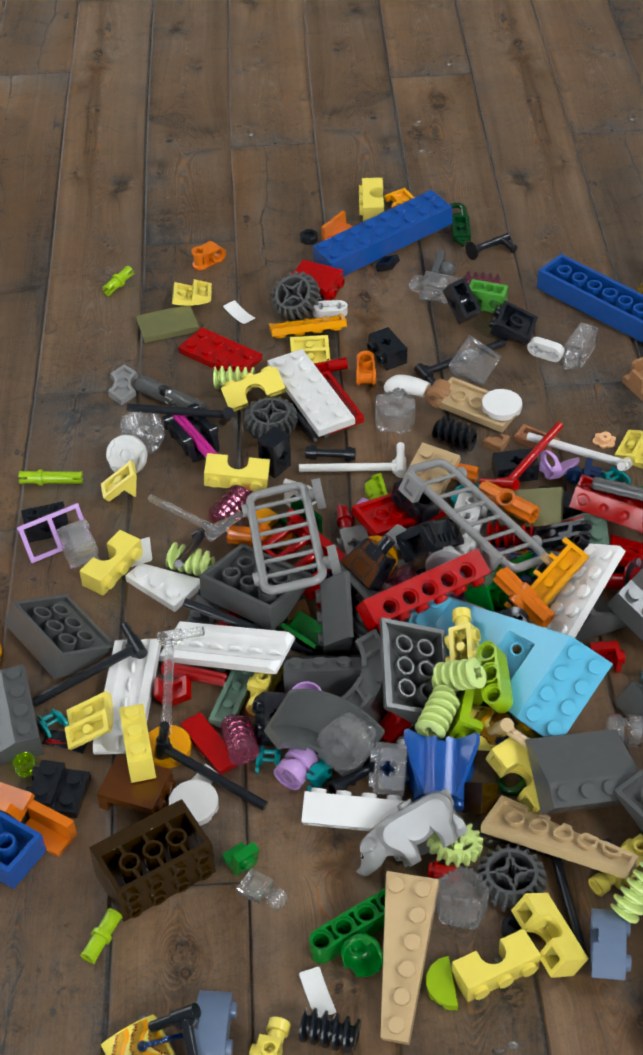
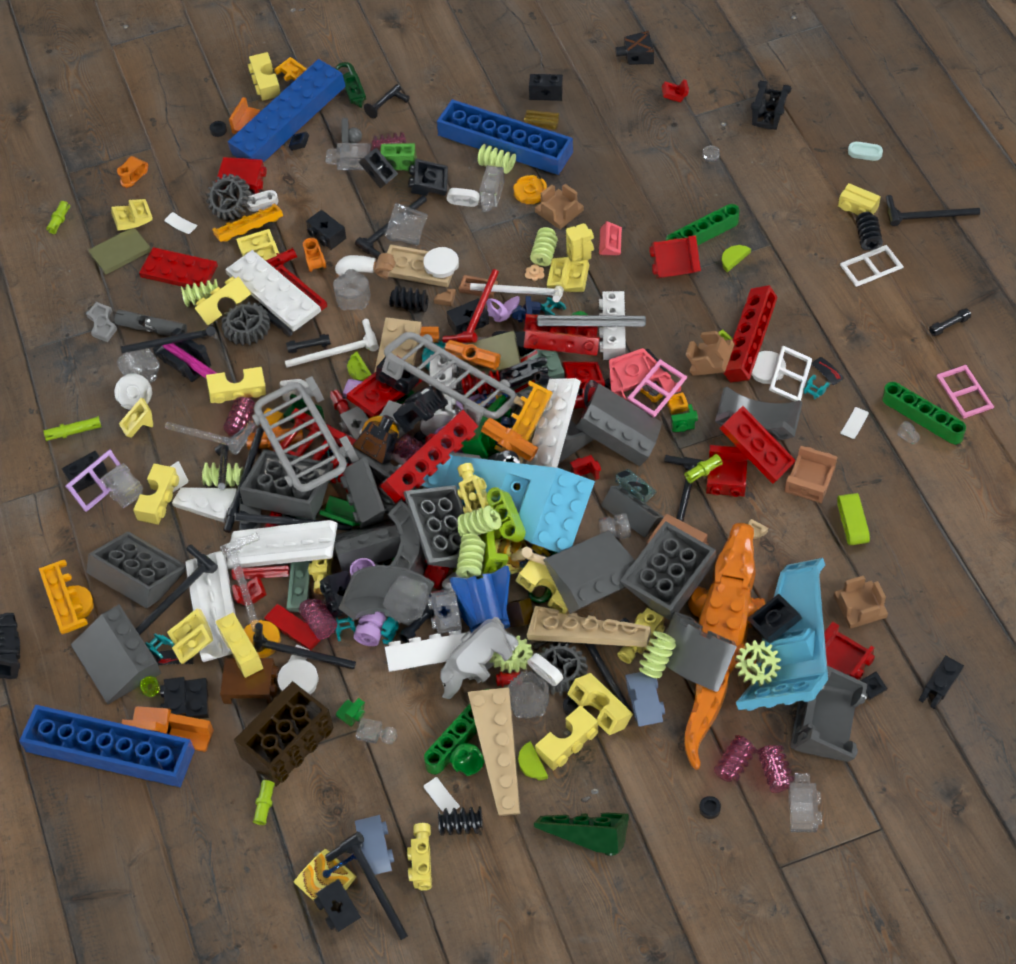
camera: 15 degrees left, 10 degrees up
(180, 611) = (247, 468): none -> black bar
(275, 447) = (262, 354): black brick -> none
(491, 871) = (545, 669): none -> white beam
(594, 318) = (496, 159): none -> yellowish green piece
(620, 358) = (529, 188): none -> light orange tile
(622, 415) = (544, 247): none -> yellowish green piece

